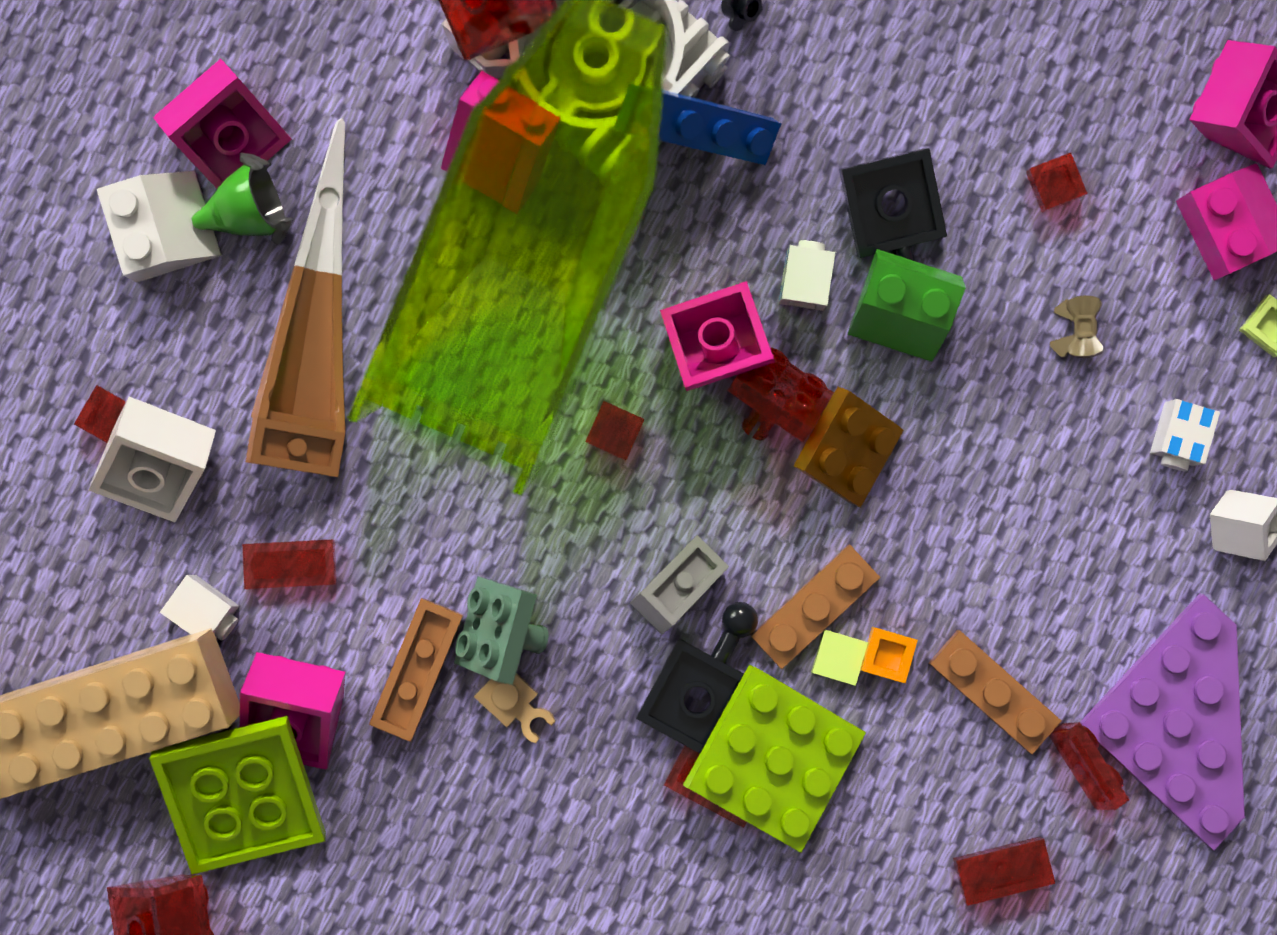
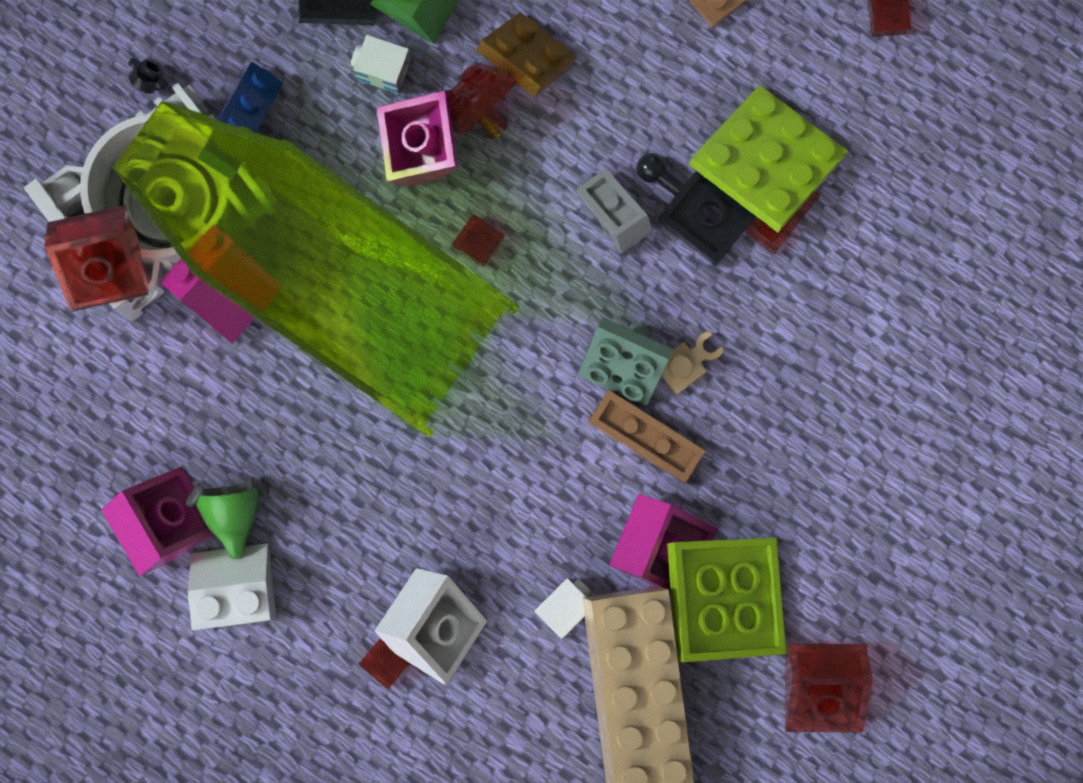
camera: 75 degrees left, 5 degrees down
(289, 564) = (539, 529): clear red plate -> none
(301, 391) = (394, 490): medium nougat plate -> none
(815, 606) = (650, 107): medium nougat plate -> none
(839, 657) = (695, 95): yellowish green tile -> none
(888, 655) = (699, 55): light orange plate -> none

